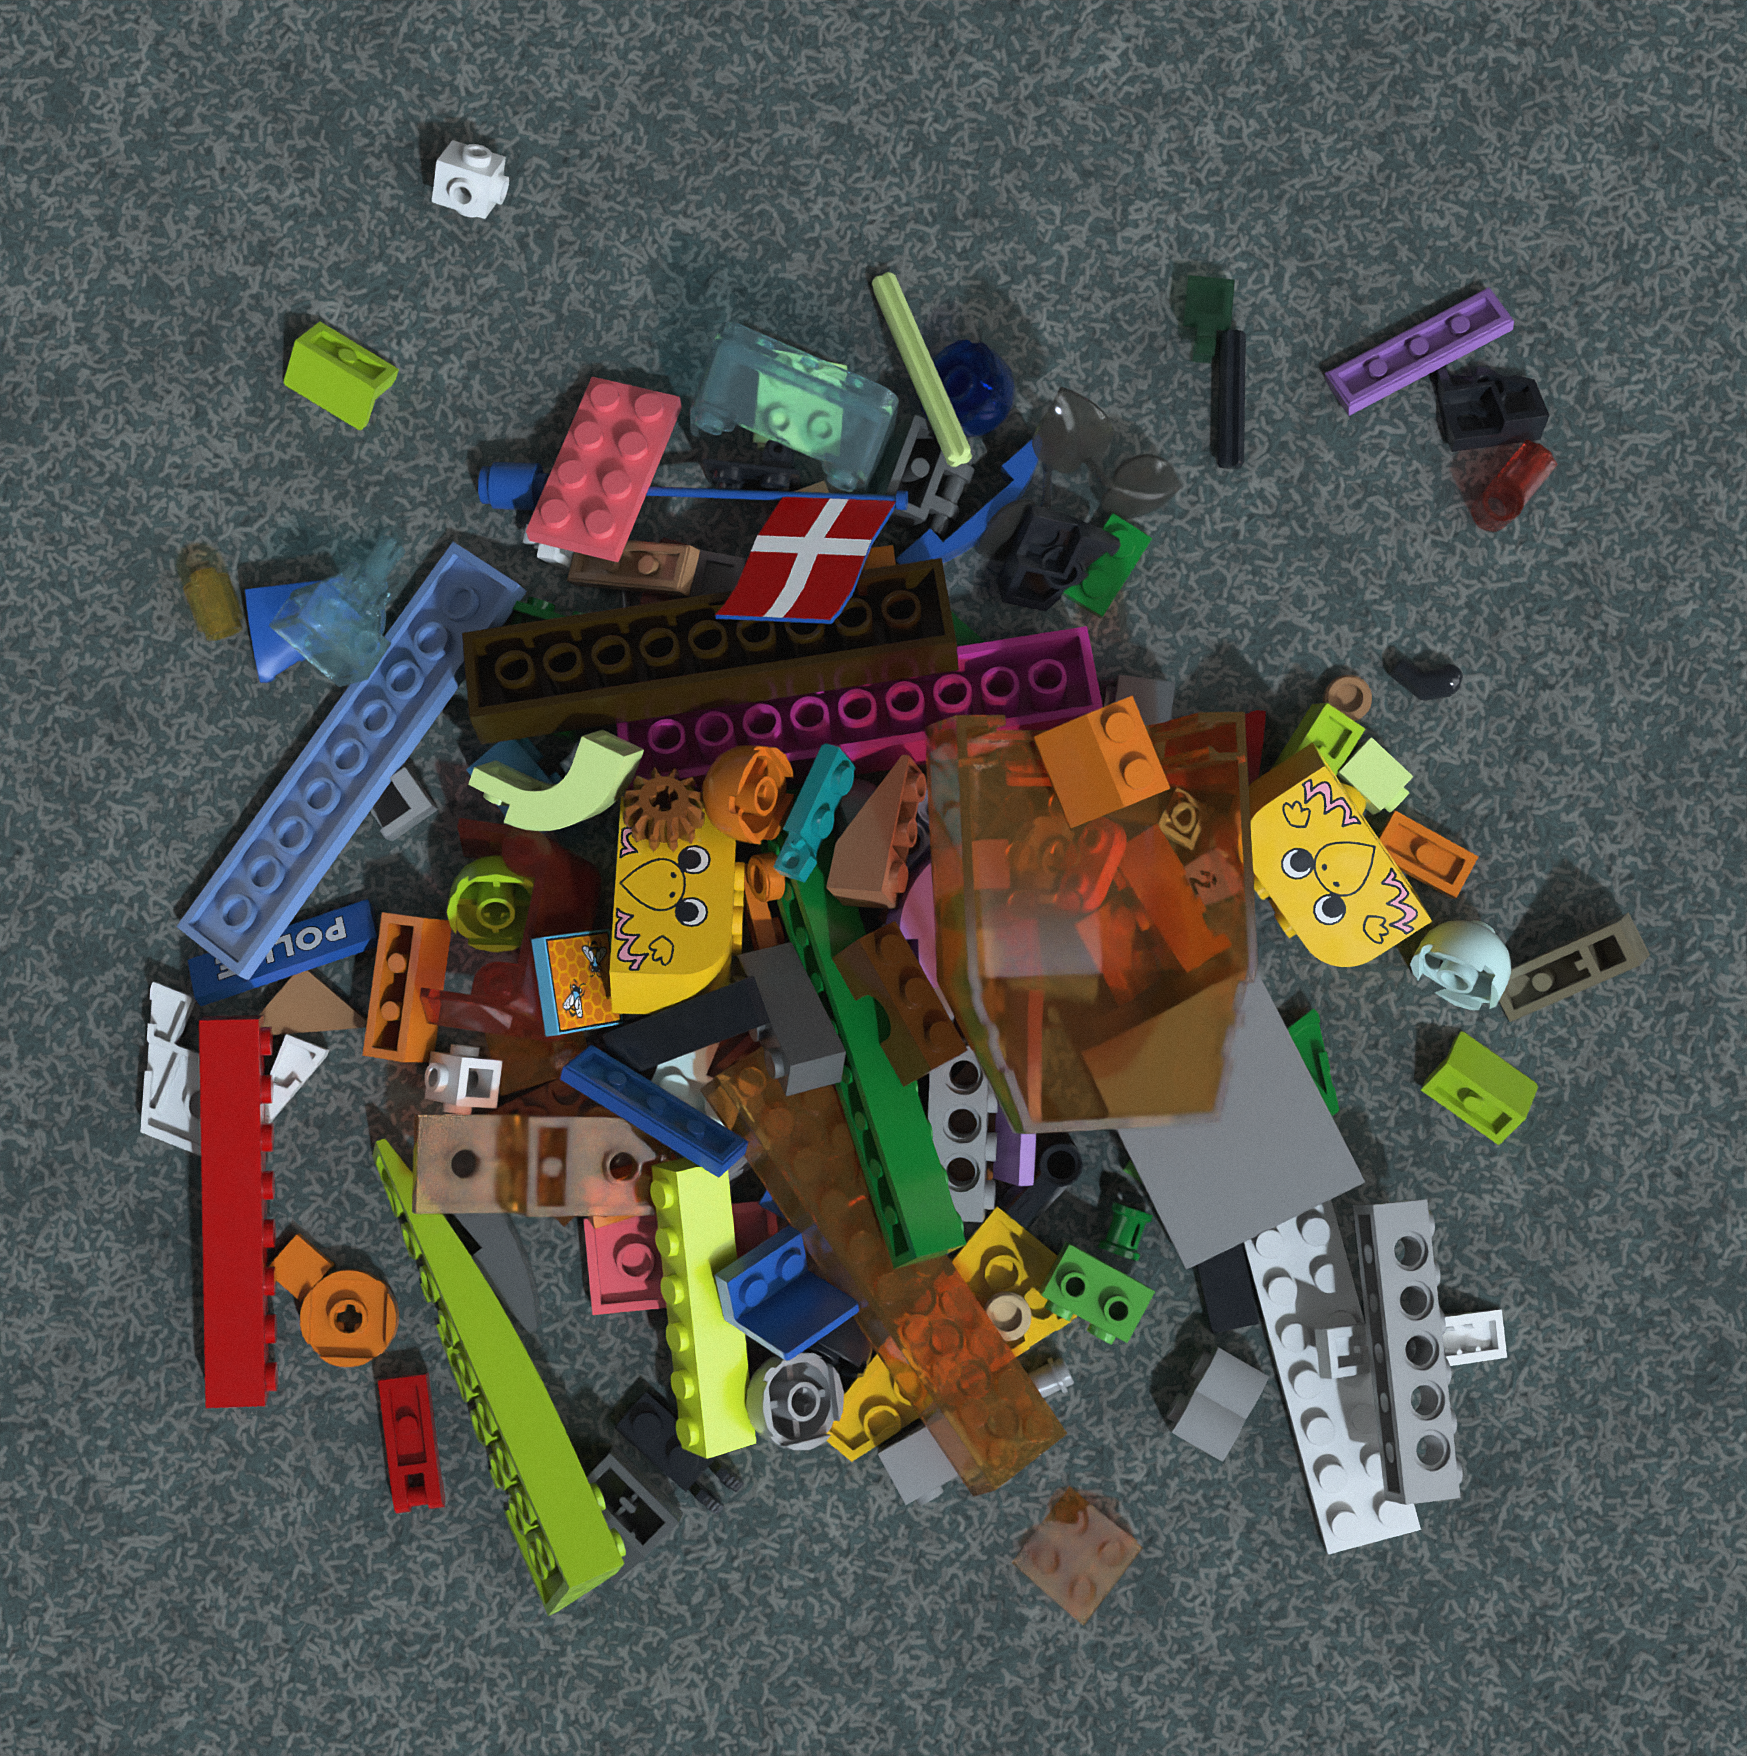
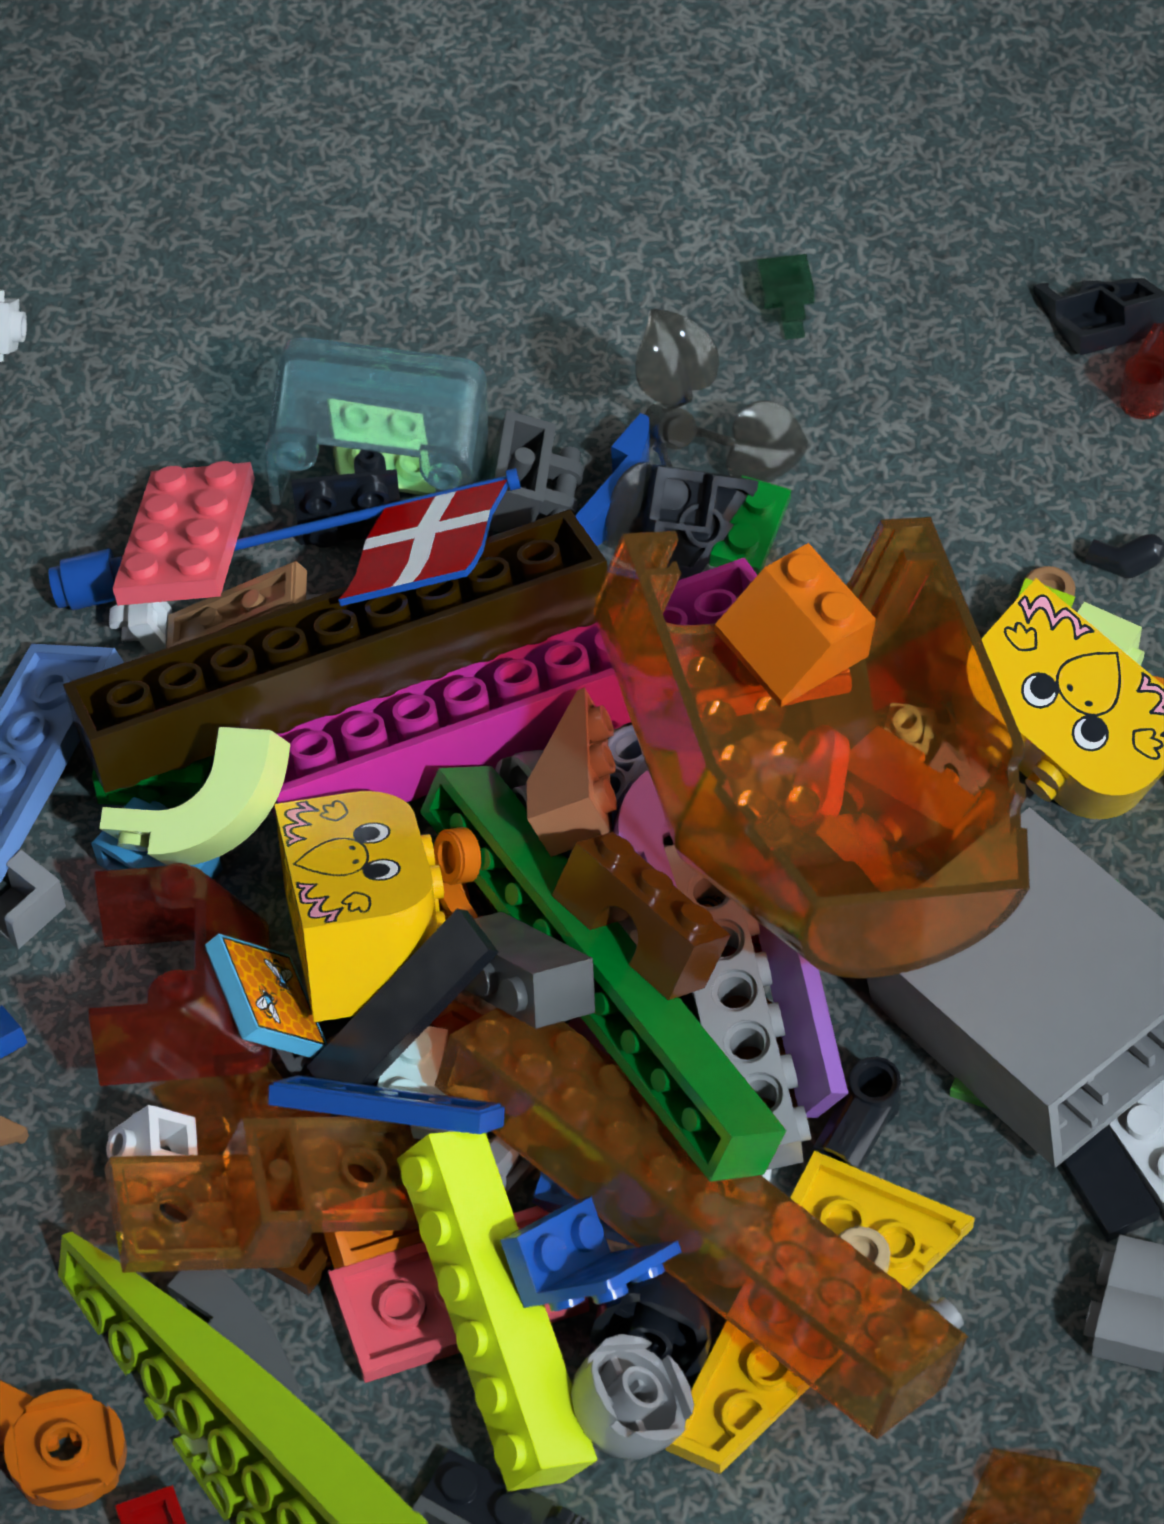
camera: 10 degrees left, 30 degrees down
(408, 957) = (64, 1100): orange brick -> none
(490, 904) = (144, 946): lime cylinder -> none
(661, 792) = (326, 789): dark orange gear -> none
(748, 793) = (414, 750): orange cylinder -> none
(814, 812) = (495, 760): teal hinge -> none
(916, 1465) = (807, 1446): light grey brick -> none
(921, 370) = (506, 380): yellowish green axle -> none
(976, 385) = (560, 387): clear blue cylinder -> none
(1096, 1293) = (956, 1199): bright green brick -> none
(1125, 1231) = (972, 1147): green bush -> none
(1231, 399) = (836, 359): black axle -> none
(1419, 351) = (1016, 279): medium lavender tile -> none

